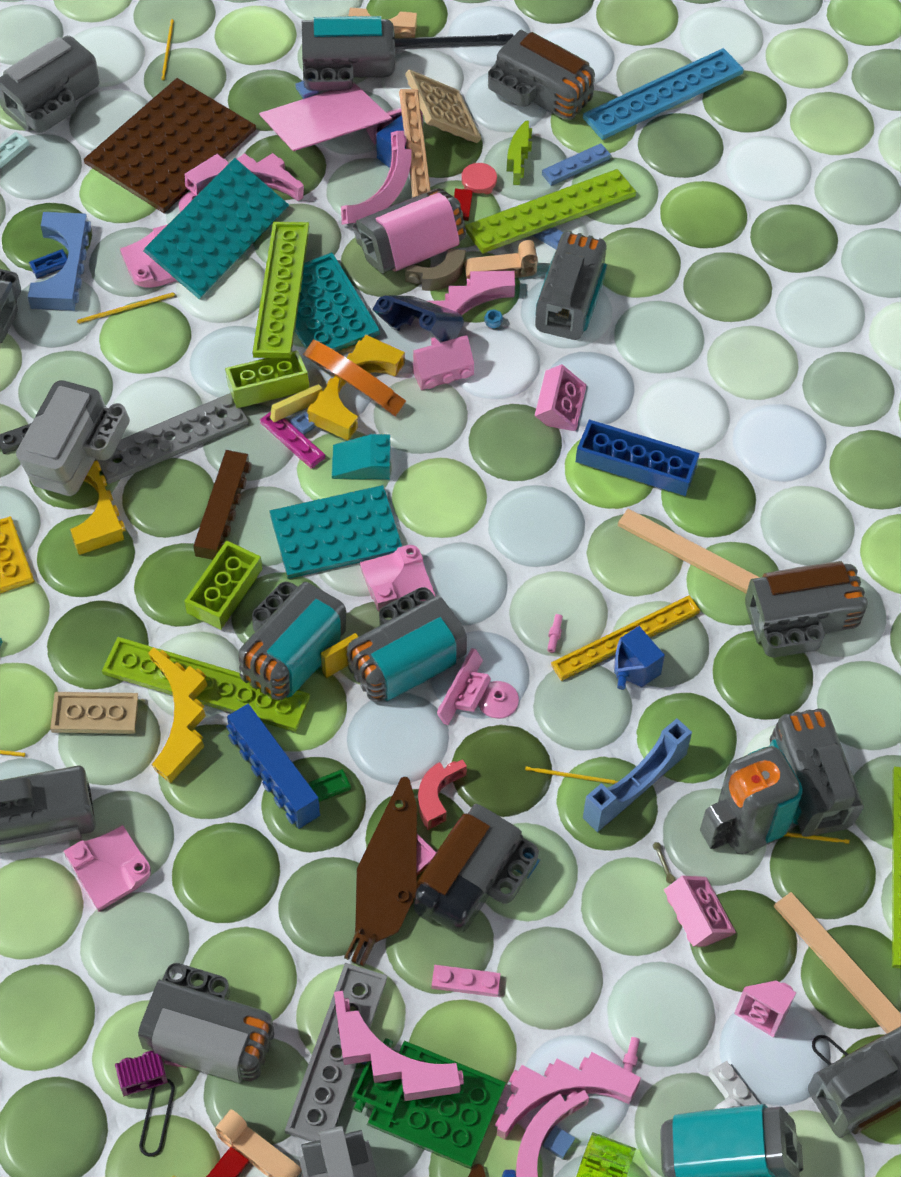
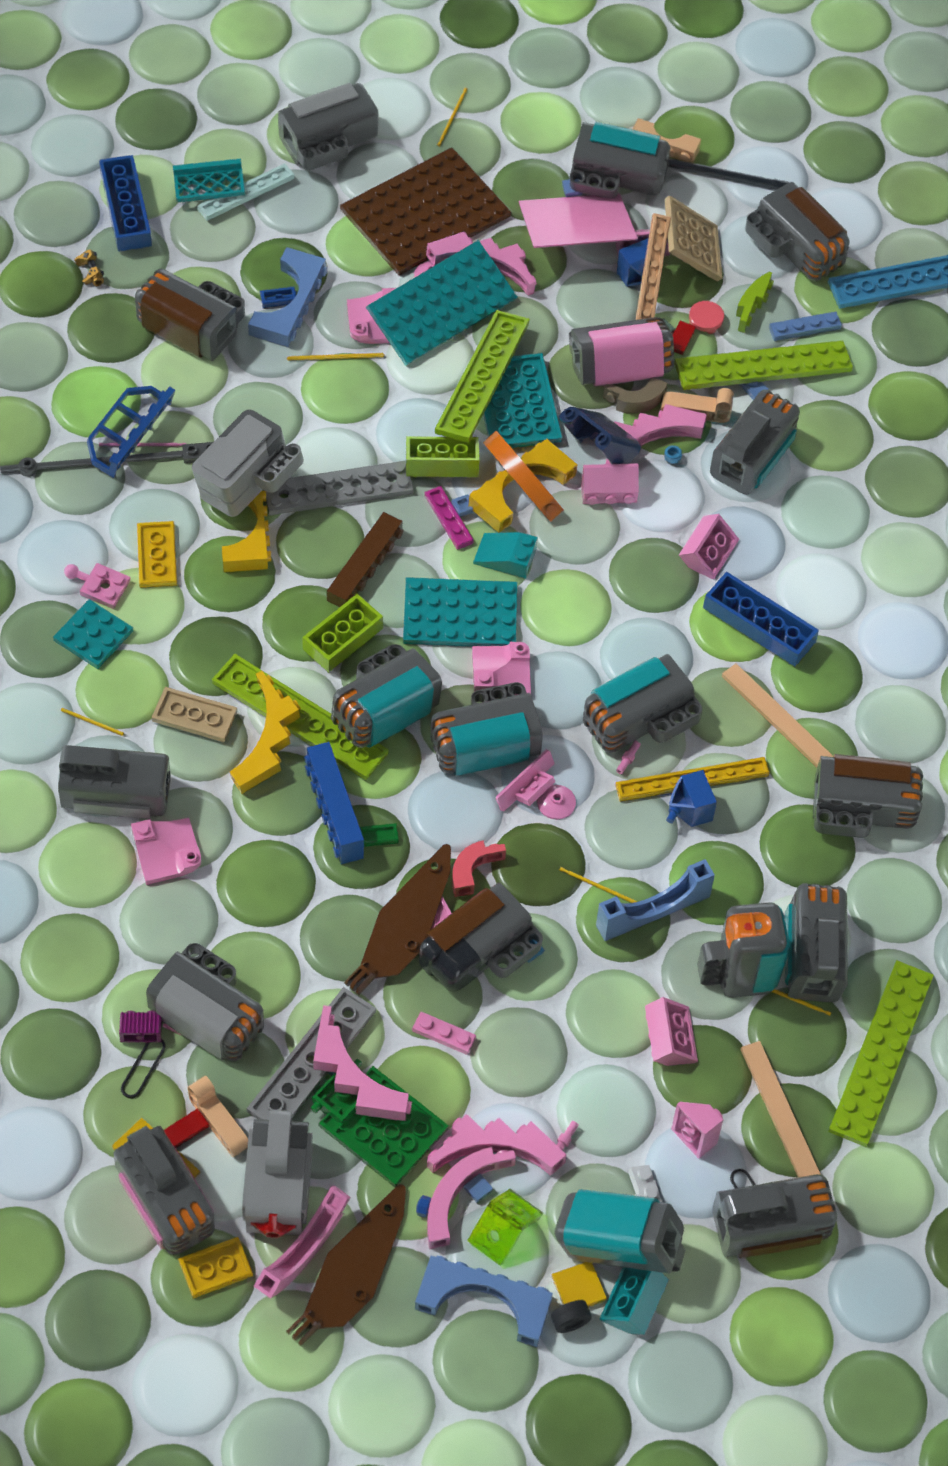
camera: 15 degrees right, 0 degrees up
(294, 403) = (460, 485): light yellow tile -> none
(335, 657) = (420, 723): yellow tile -> none
(391, 187) = (615, 307): bright pink arch -> none
(554, 572) = (641, 704): none -> dark grey piece
(670, 878) = (654, 968): olive hinge -> none

